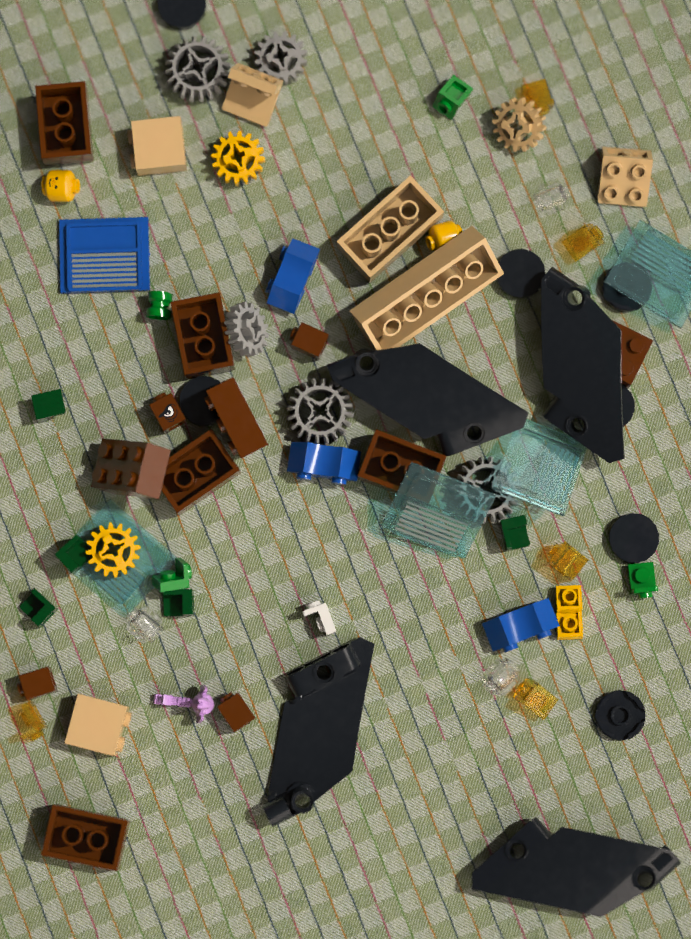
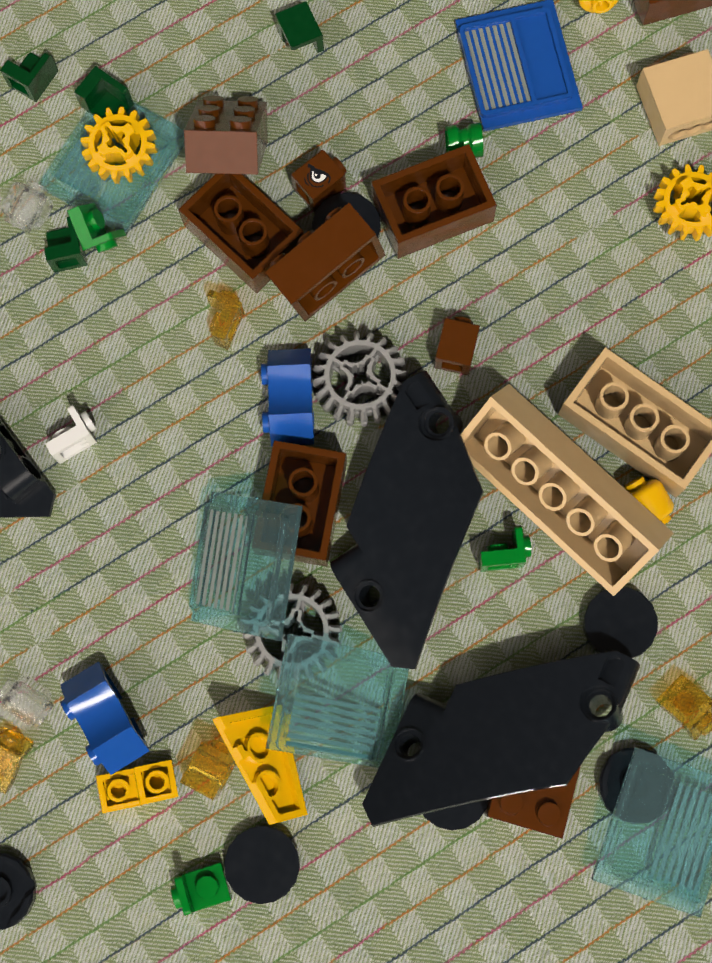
camera: 85 degrees right, 5 degrees down
(246, 329) = (453, 254): light grey gear -> none
(261, 498) = (227, 322): none -> clear yellow bracket
(296, 267) = (558, 305): blue brick -> none
(461, 342) = (501, 558): none -> green bracket
(514, 533) = (237, 684): dark green panel -> none
(577, 522) = (268, 772): none -> yellow wing

